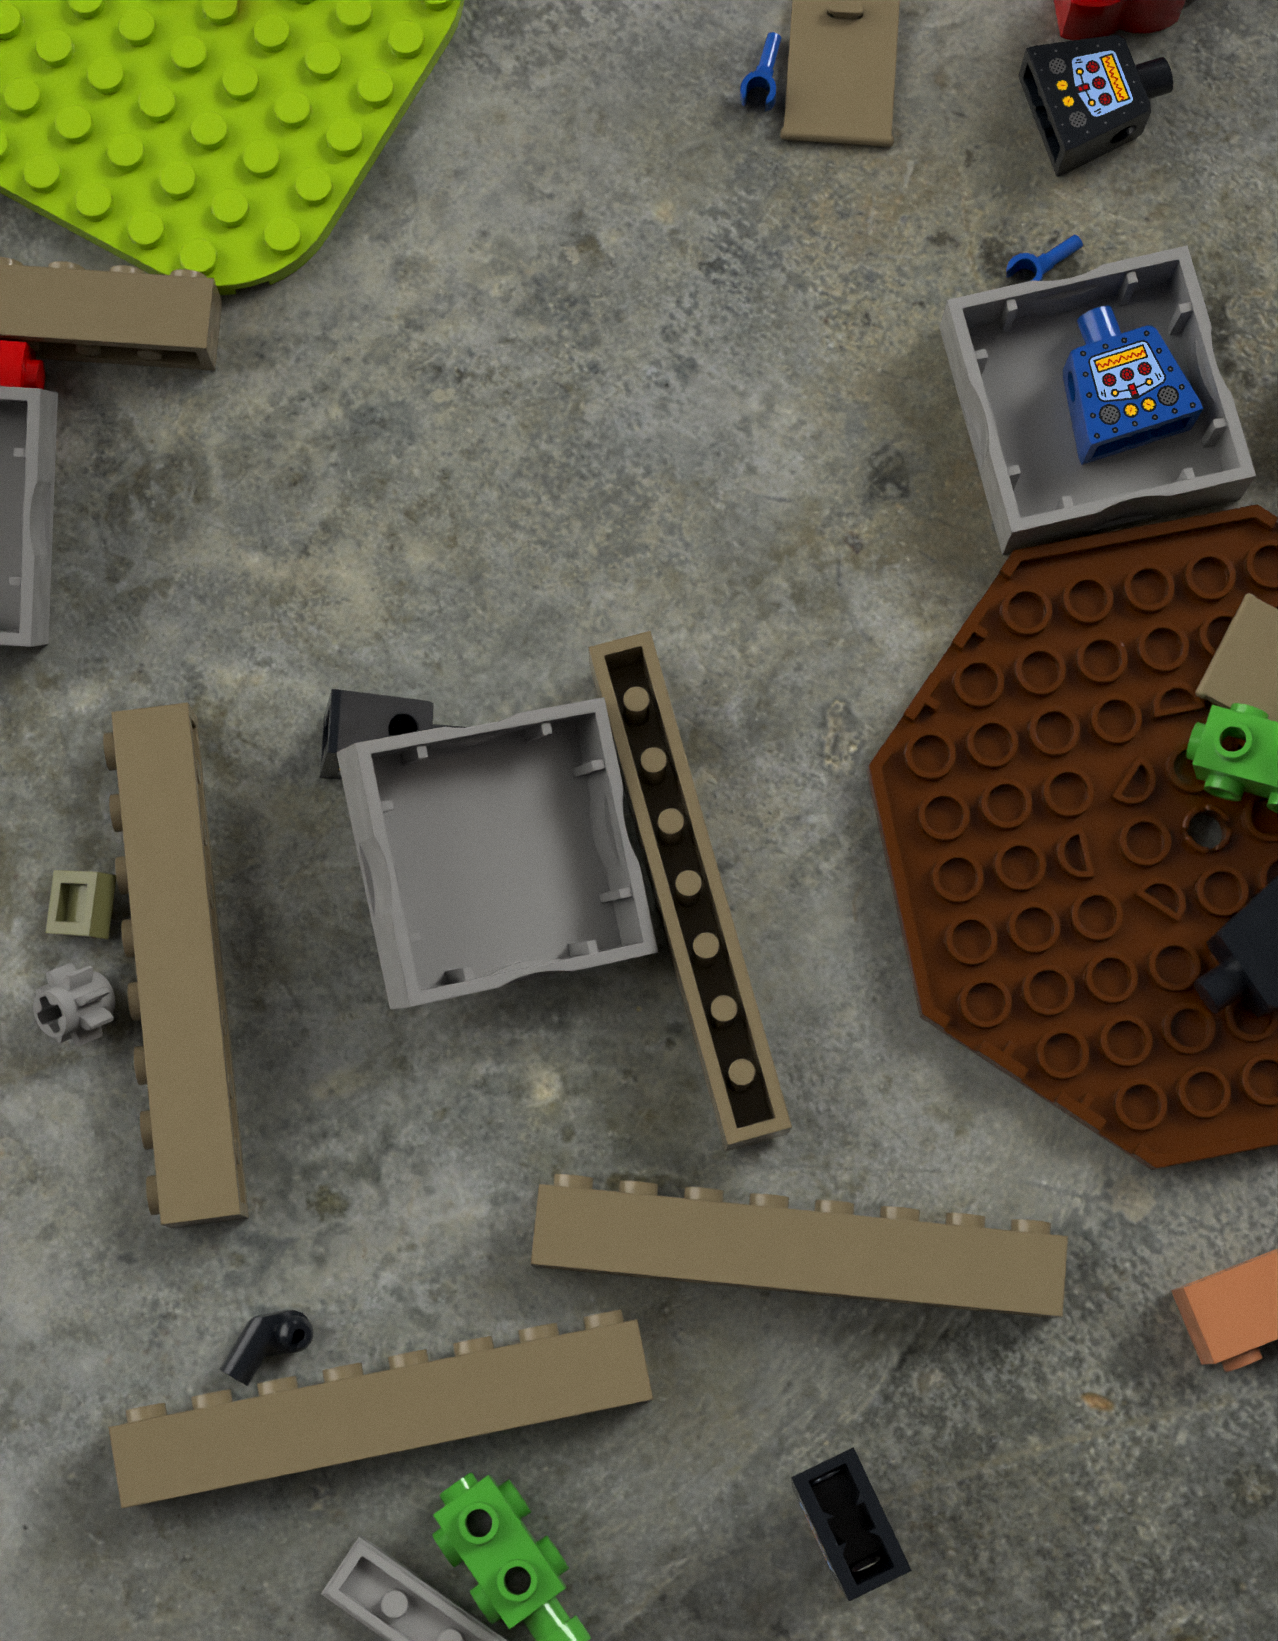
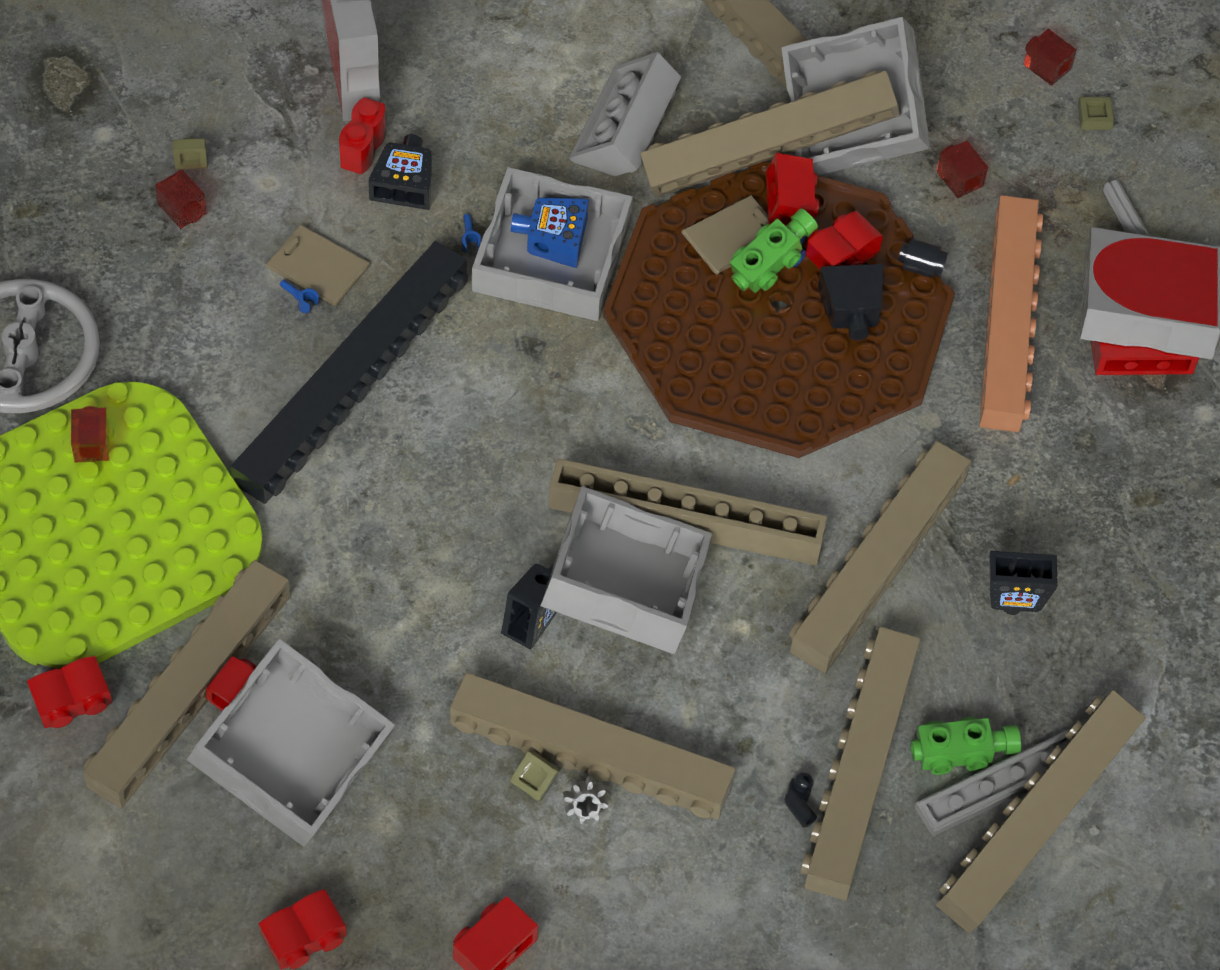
camera: 65 degrees left, 20 degrees down
(661, 228) = (349, 373): none -> black brick

